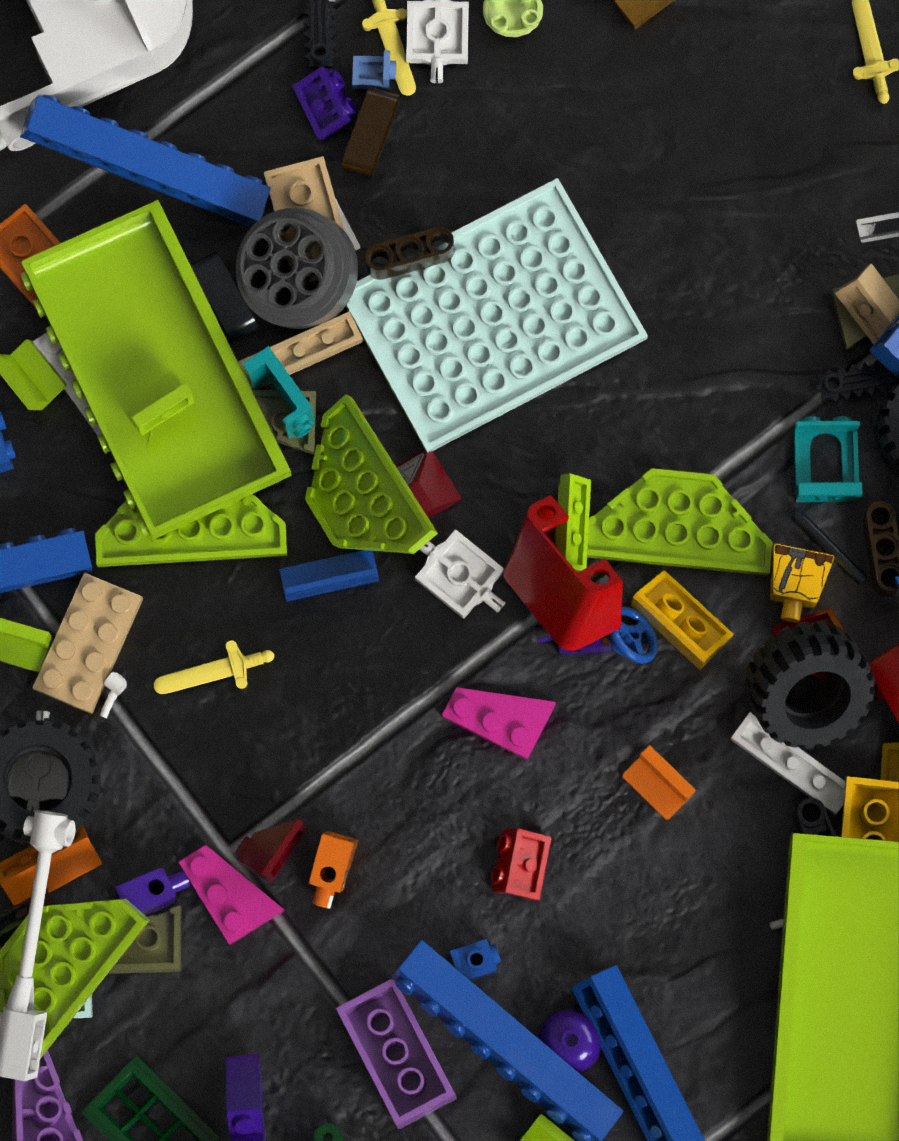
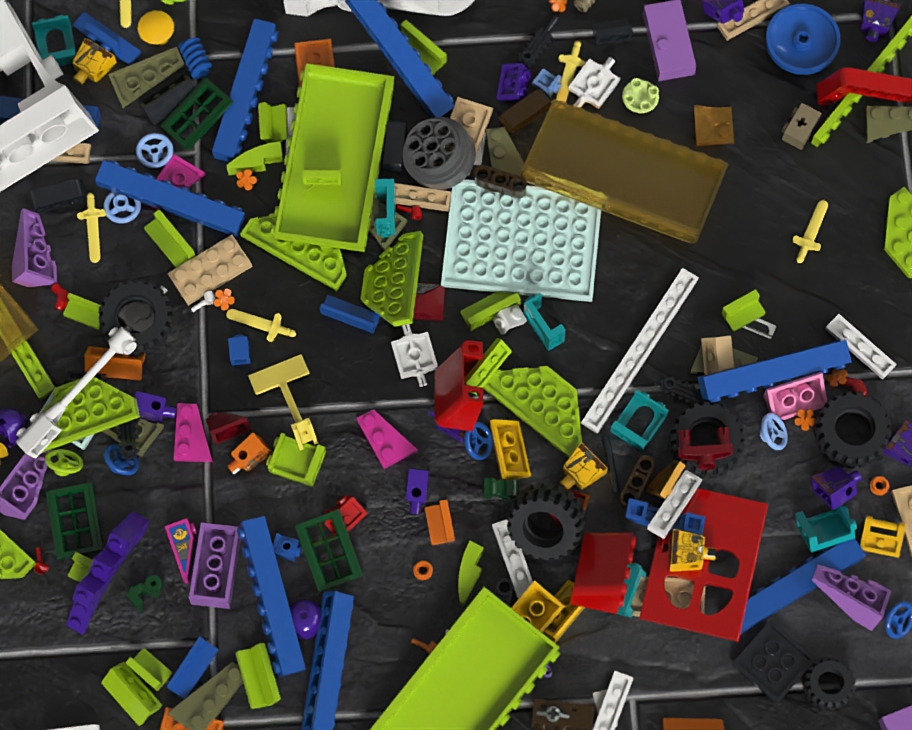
camera: 35 degrees right, 5 degrees down
(43, 442) = (257, 158): none -> lime slope
(48, 481) = (245, 179): none -> orange plant
(80, 1056) = (64, 466): none -> lime piece
(137, 671) = (223, 299): none -> orange plant
(152, 965) = (128, 439): none -> black piece
(156, 998) = (118, 464): none -> blue piece
(184, 133) = (428, 51): none -> lime panel
(211, 729) = (239, 350): none -> blue brick
(293, 727) = (279, 376): none -> light yellow piece
(317, 371) = (415, 211): none -> red hand
(326, 1052) = (183, 545): none -> slope
(383, 211) = (503, 152): none -> olive wing
(400, 829) = (295, 464): none -> lime panel
(514, 440) = (488, 308): none -> lime panel
(519, 949) = (346, 545): none -> dark green piece
(553, 437) = (509, 318): none -> white bracket
(568, 128) = (624, 171): none -> clear yellow windscreen
(589, 747) = (417, 481): none -> dark purple torso
(604, 418) = (549, 337): none -> teal panel
(688, 856) = (423, 564): none -> orange plate
(709, 679) = (502, 488): none -> dark green leg
(745, 823) = (469, 571): none -> lime slope
(760, 364) = (639, 351): none -> white plate
(769, 963) = (429, 648): none -> orange hand
(859, 218) = (743, 311): none -> lime panel

